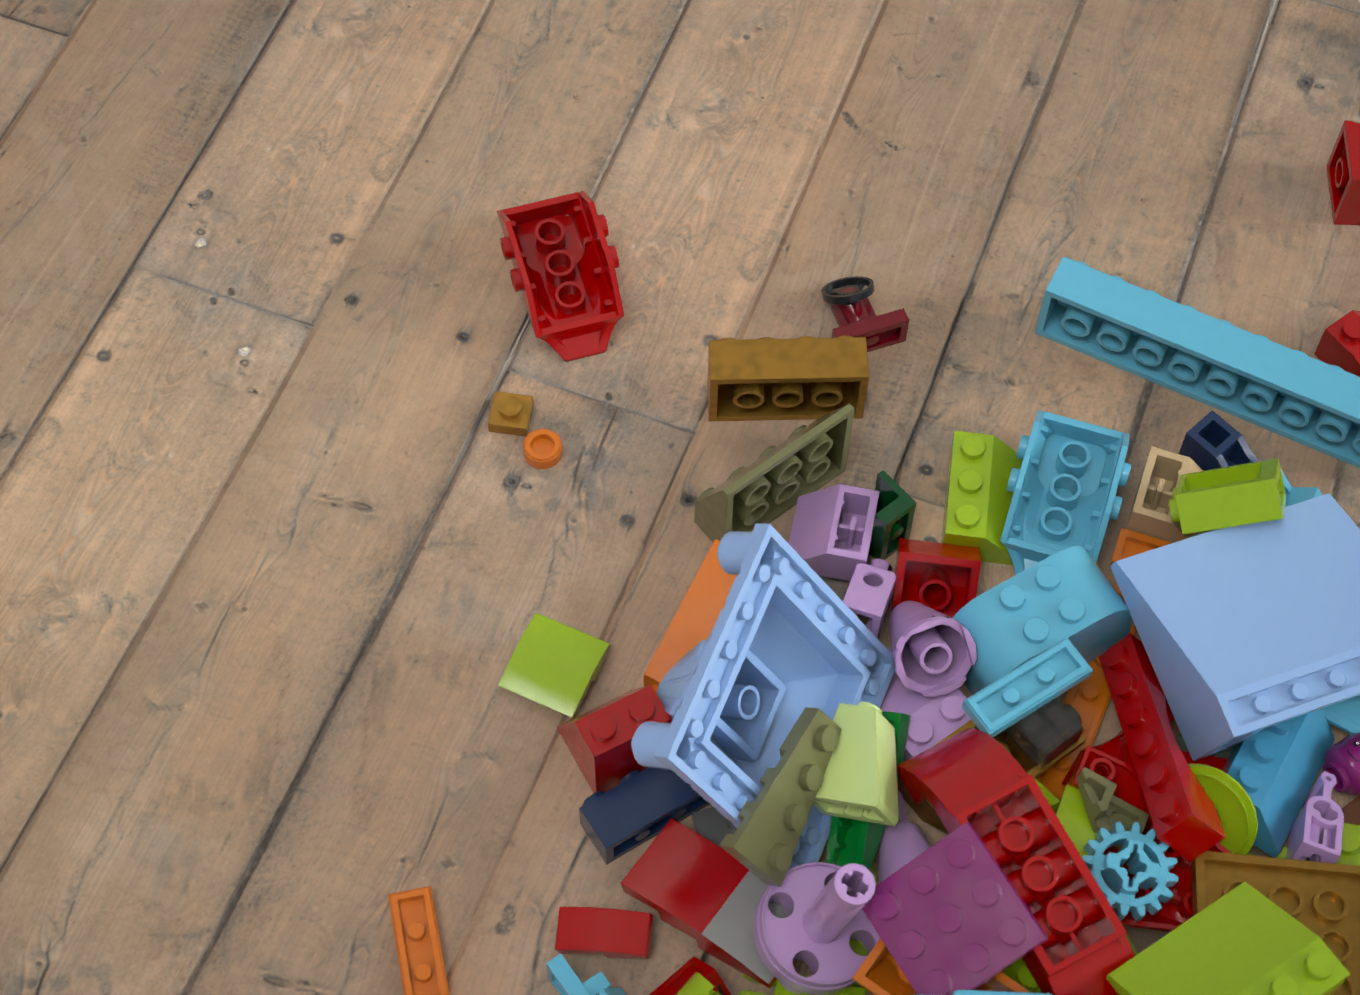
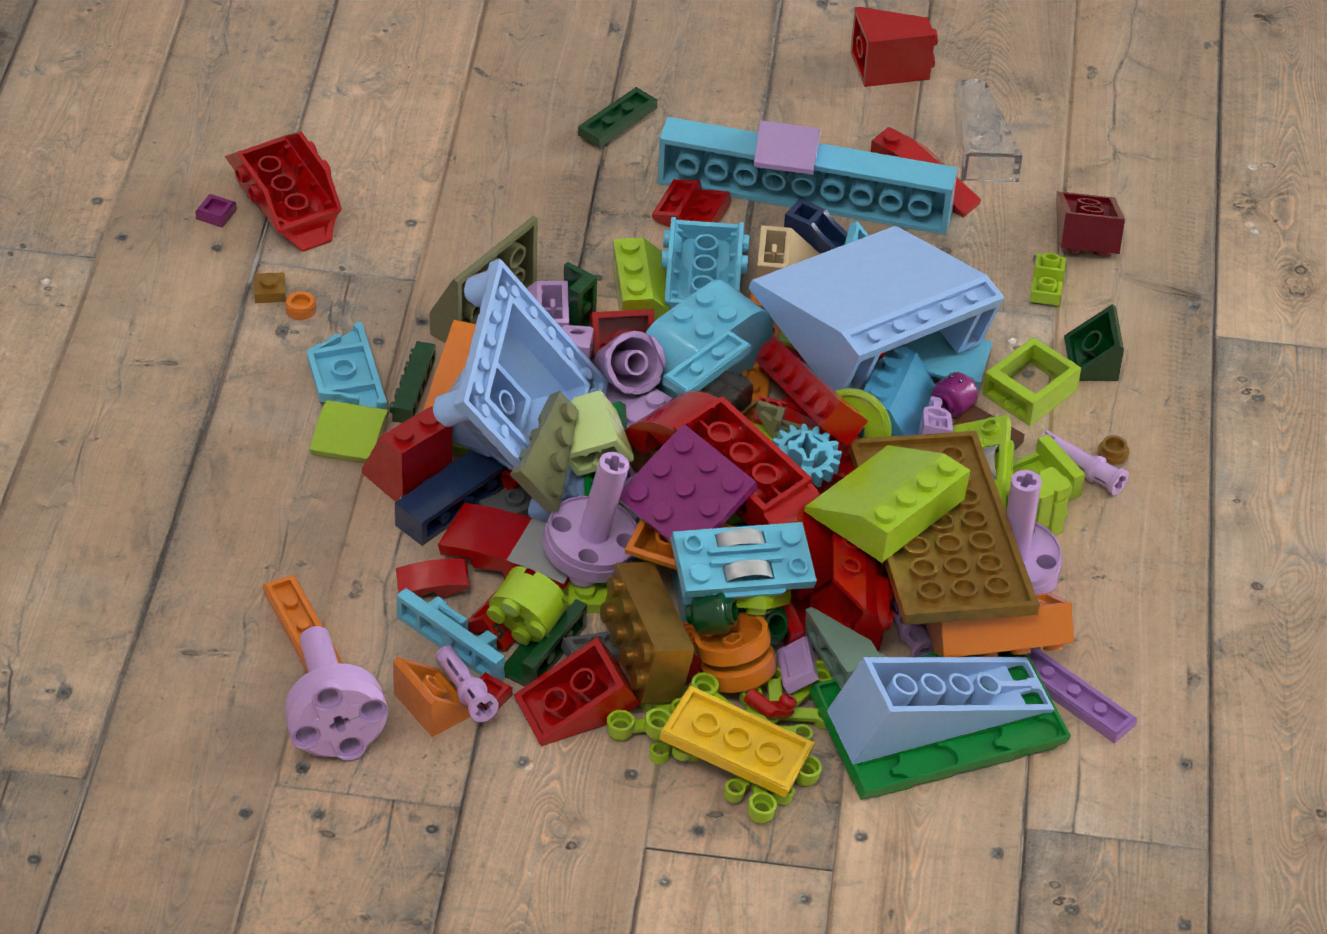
camera: 15 degrees left, 15 degrees down
(474, 281) = (216, 210): none -> magenta tile
(573, 568) = (346, 370): none -> medium azure wing
(653, 601) = (413, 381): none -> dark green piece
(786, 377) = (466, 227): pearl gold brick -> none
(857, 316) = (525, 197): dark red piece -> none
(1004, 224) = (617, 117): none -> dark green plate
(1070, 381) = (690, 203): none -> red slope
(1209, 338) = (787, 147): none -> lavender slope
(1229, 497) = (823, 235): lime window -> none

